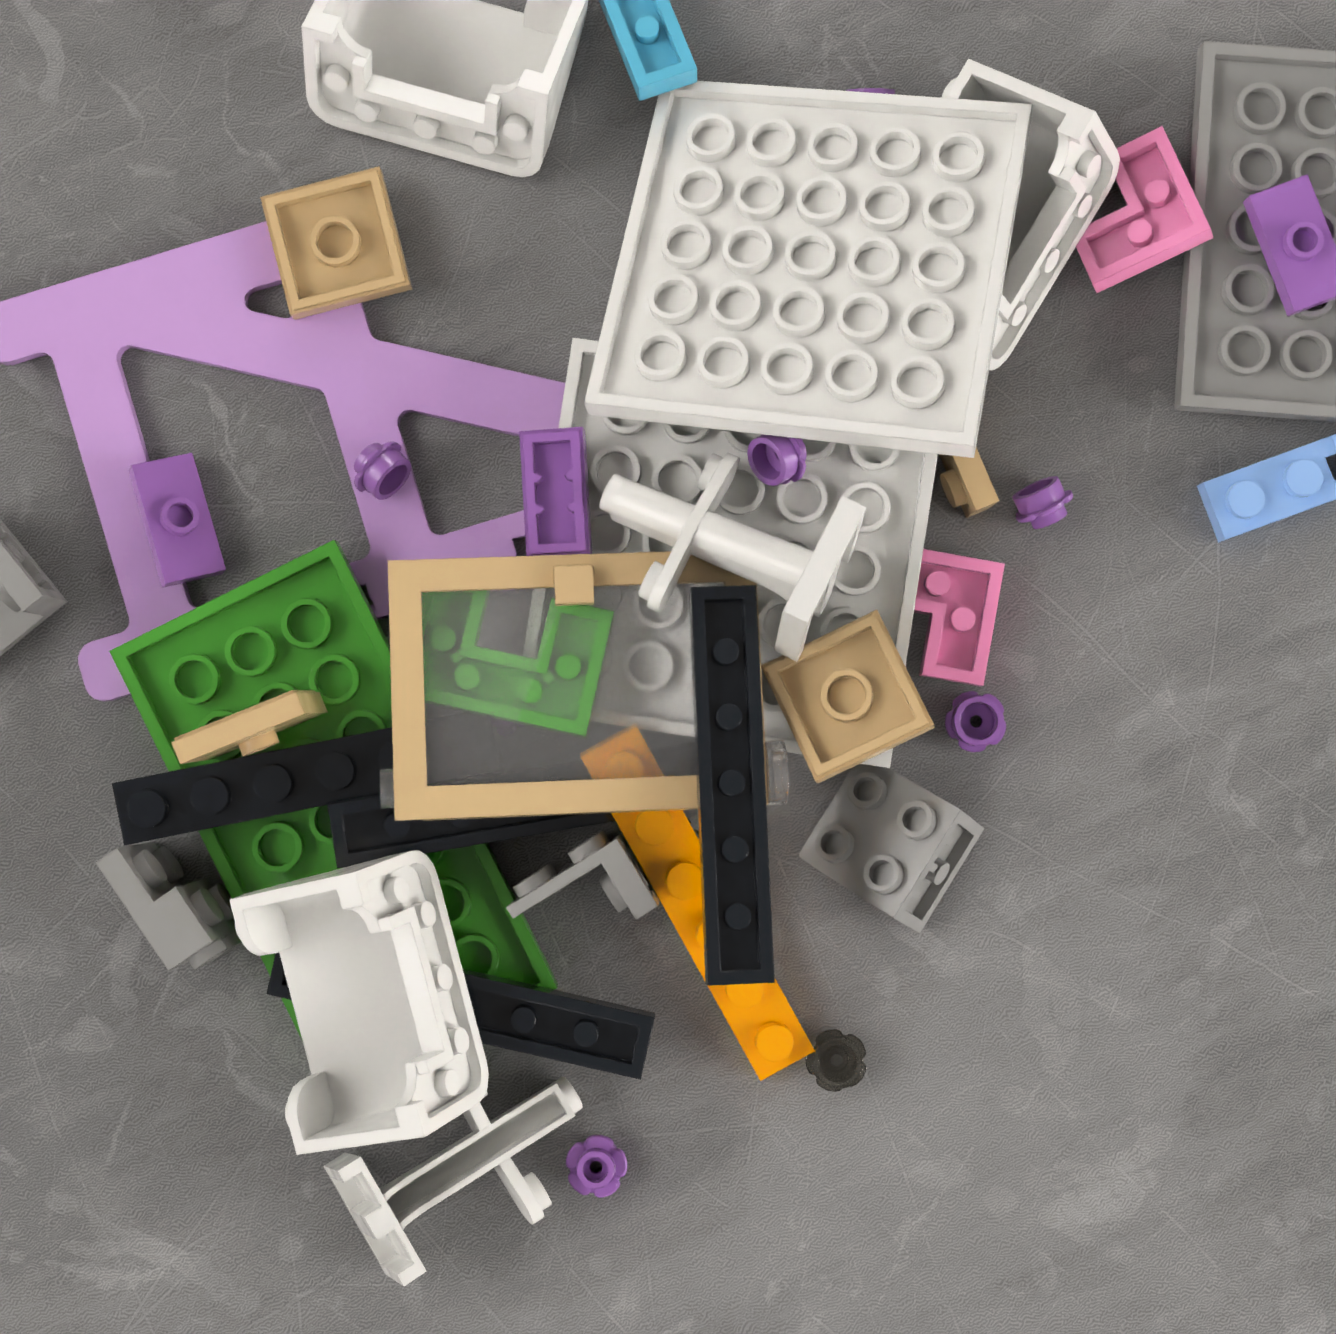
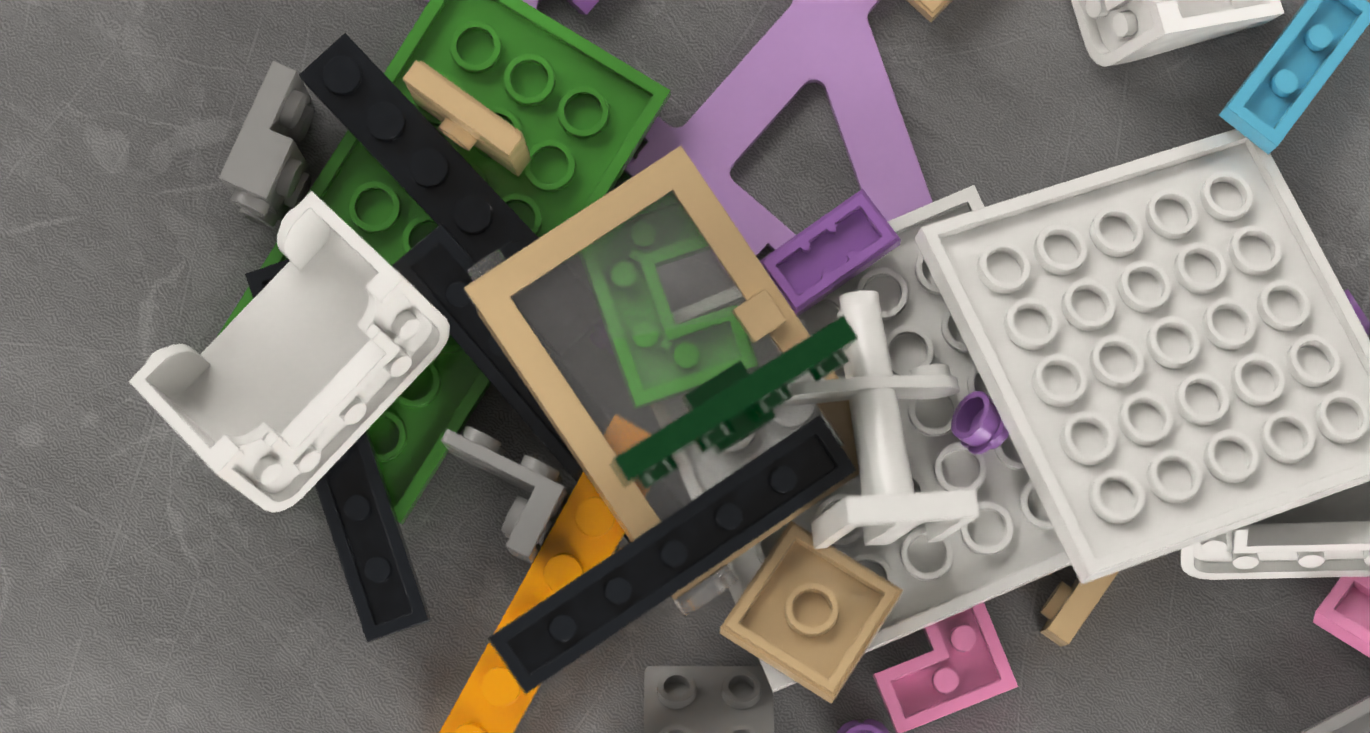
camera: 50 degrees right, 5 degrees down
(381, 470) = (756, 93): medium lavender plate -> none
(388, 1210) = (115, 489): white piece -> none
(599, 1149) = (281, 653): medium lavender plate -> none
(641, 654) = (734, 405): none -> dark green plate
(1042, 502) = (1094, 688): medium lavender plate -> none

